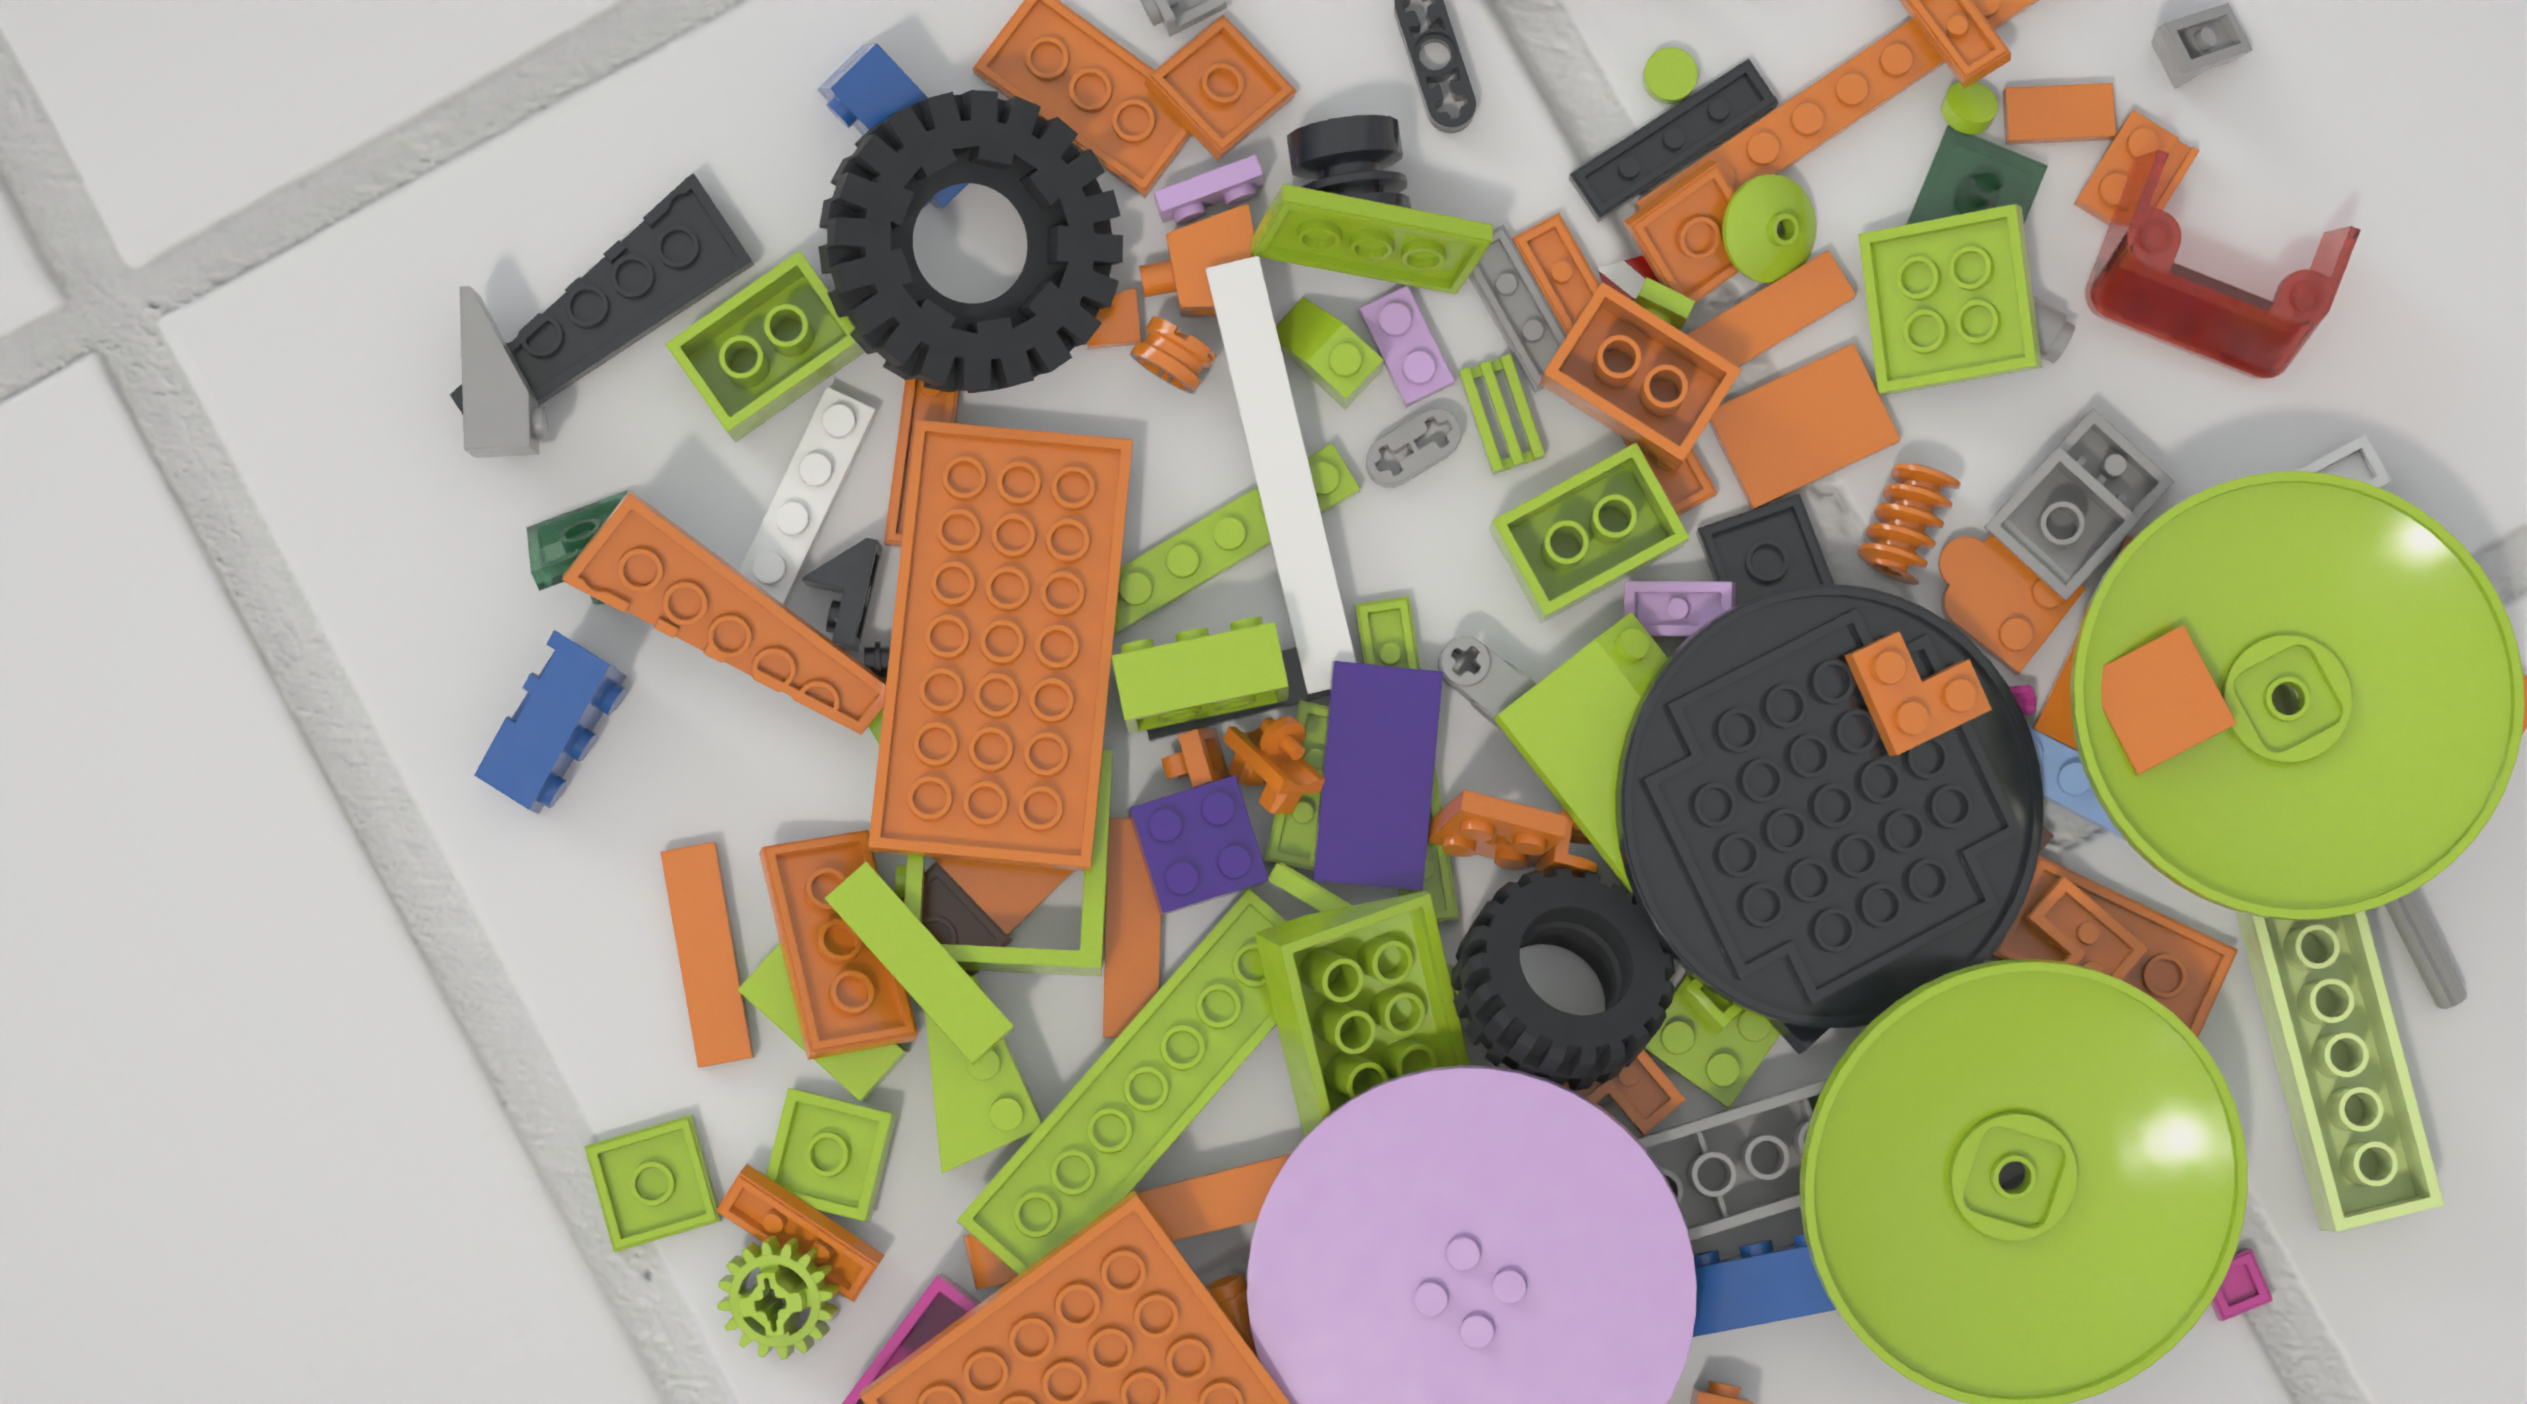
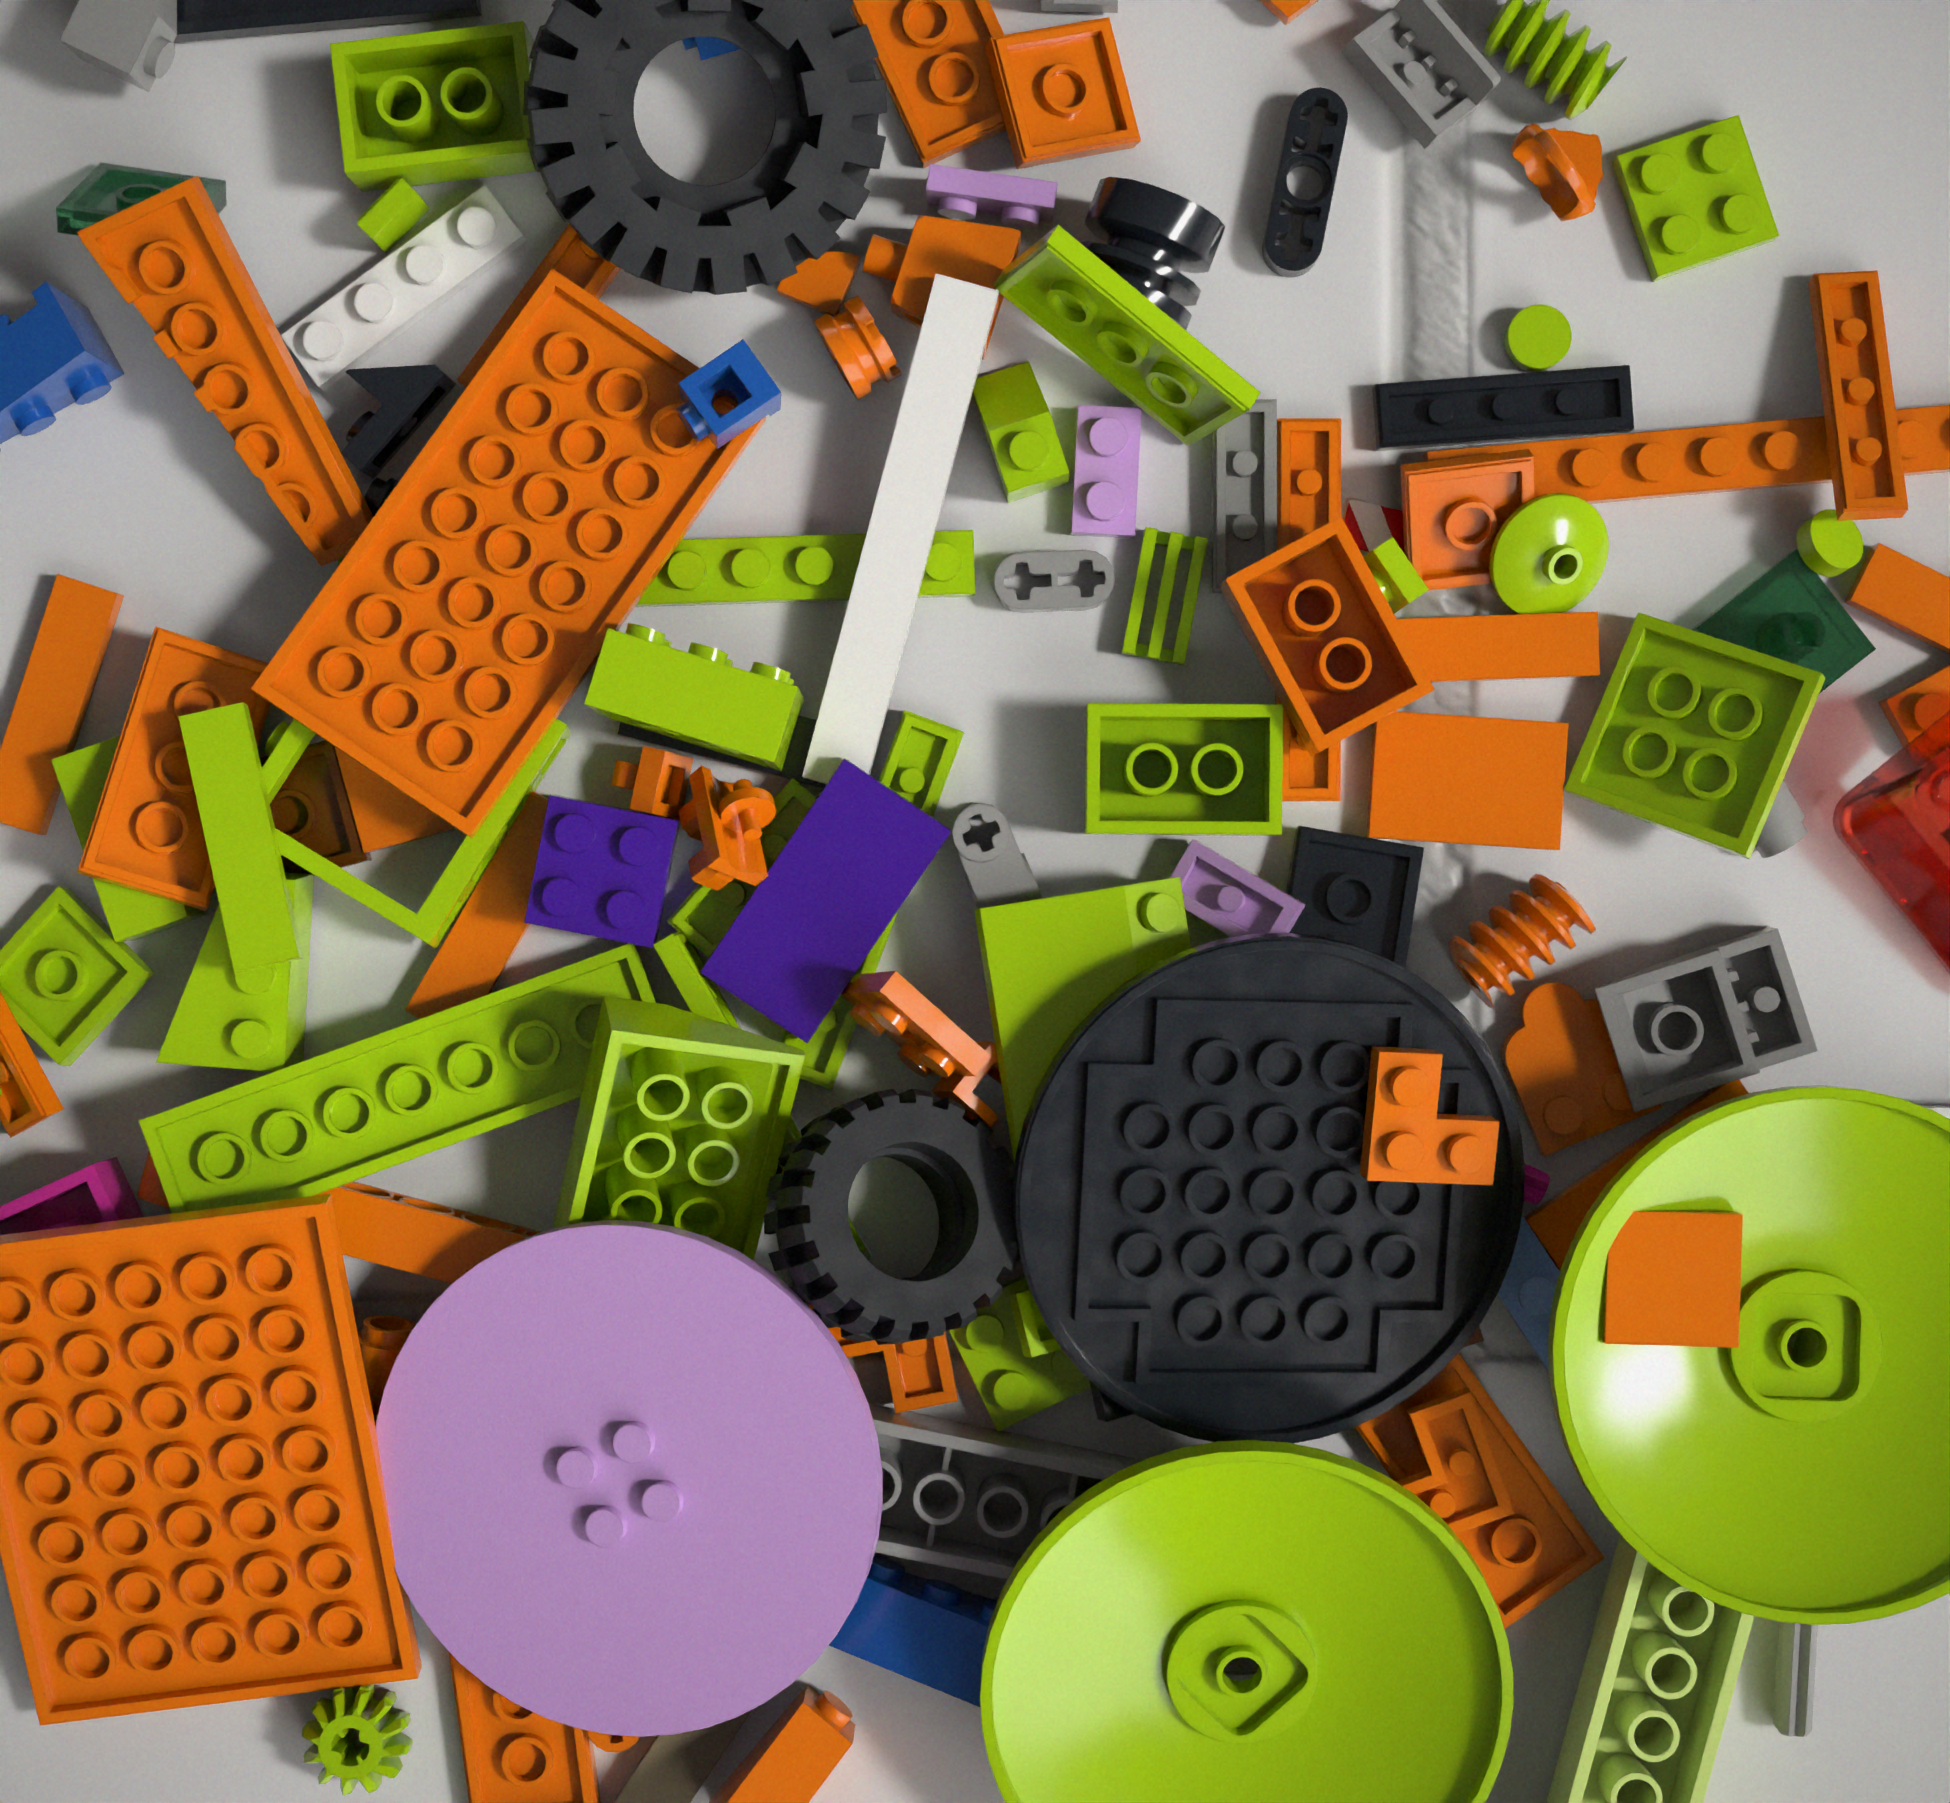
camera: 30 degrees right, 5 degrees up
(771, 446) = (393, 214): none -> lime tile
(1101, 422) = (730, 374): none -> blue brick

